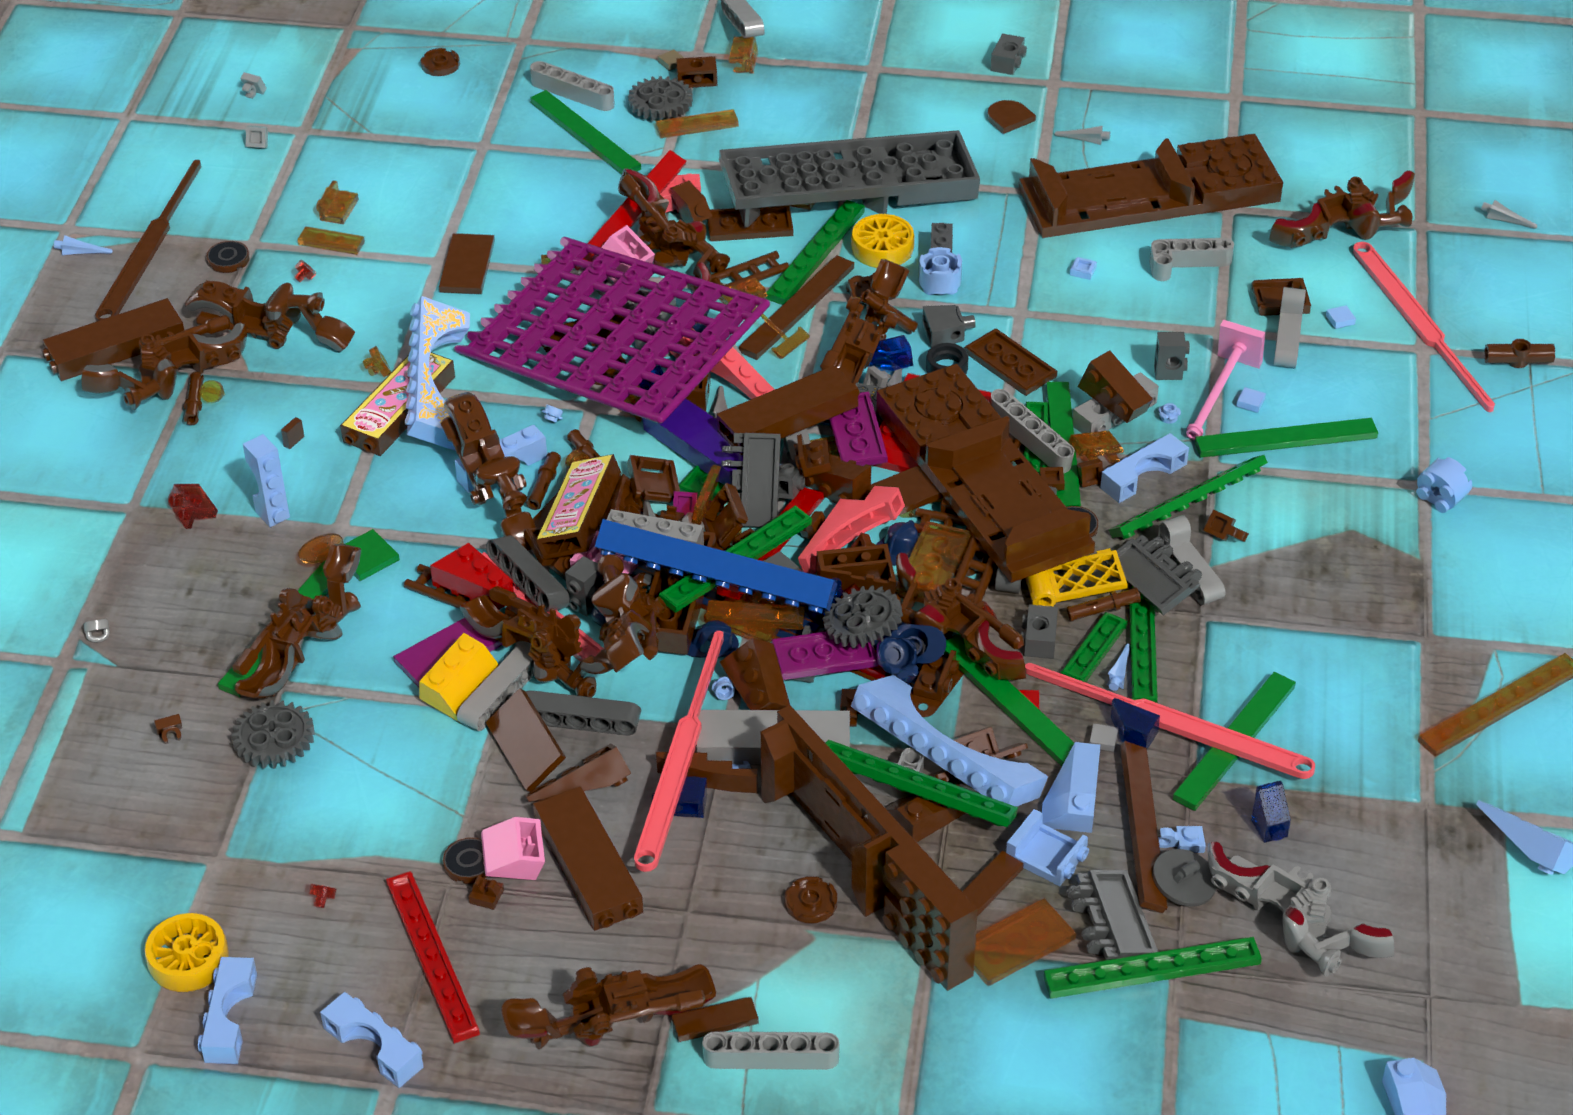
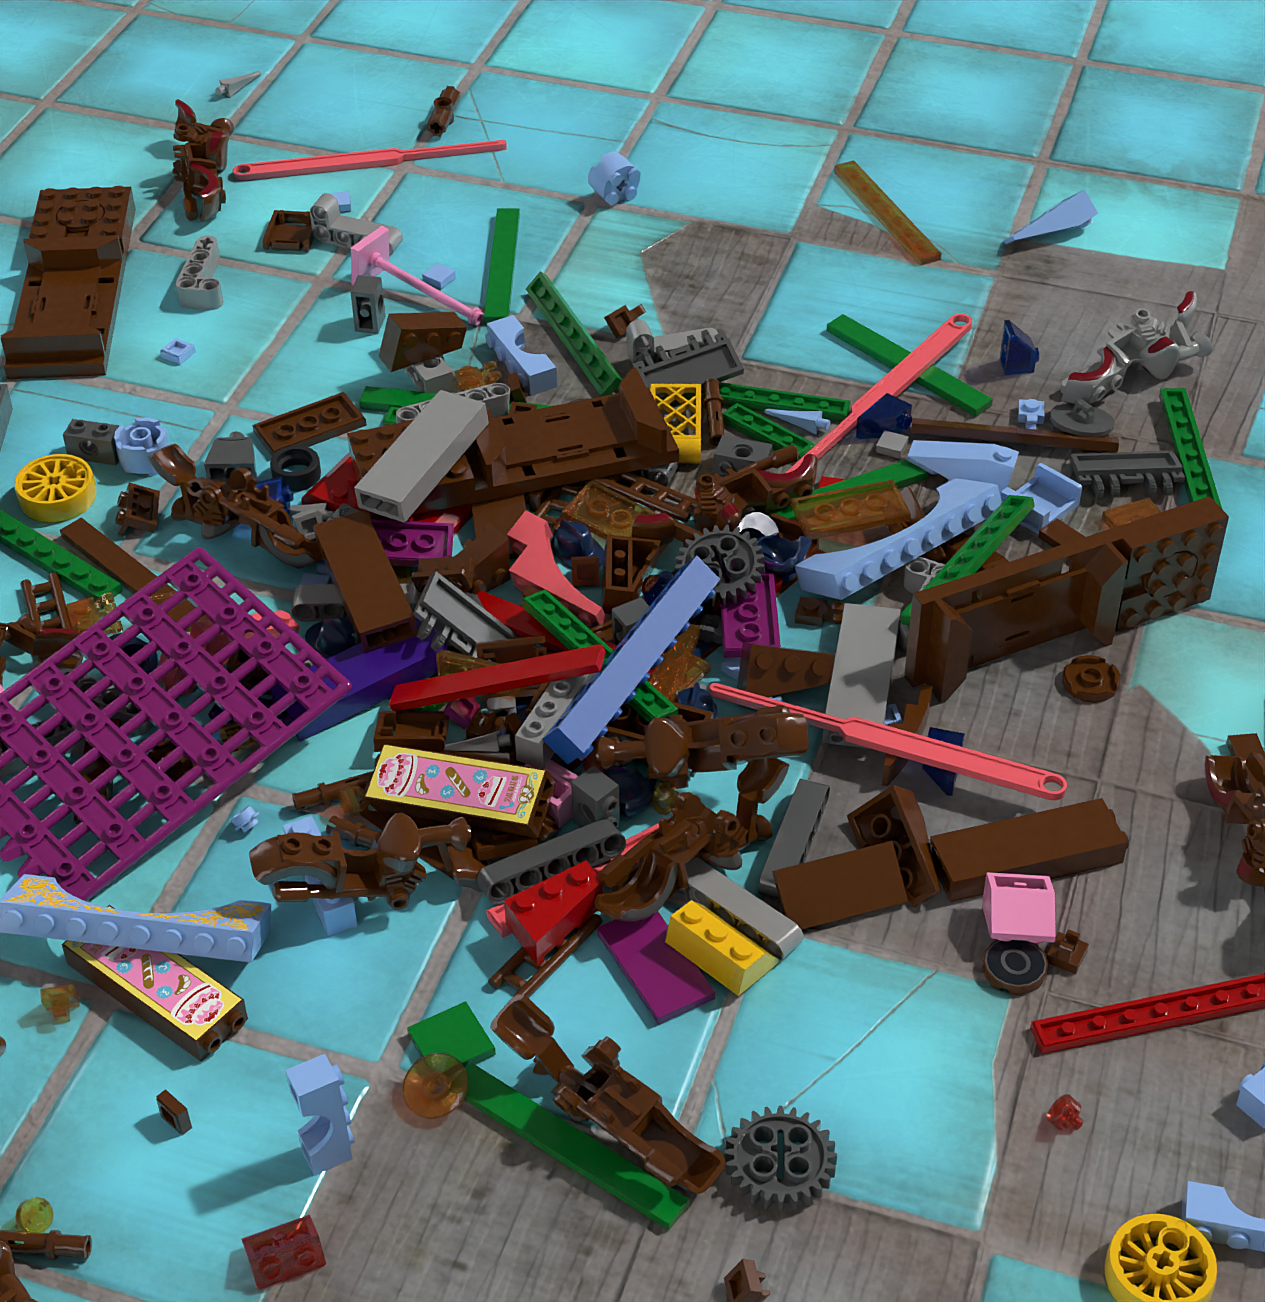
camera: 80 degrees left, 0 degrees up
(683, 497) = (498, 678): none -> red tile
(920, 401) = (421, 456): none -> light grey brick
(969, 699) = (850, 509): none -> clear orange tile

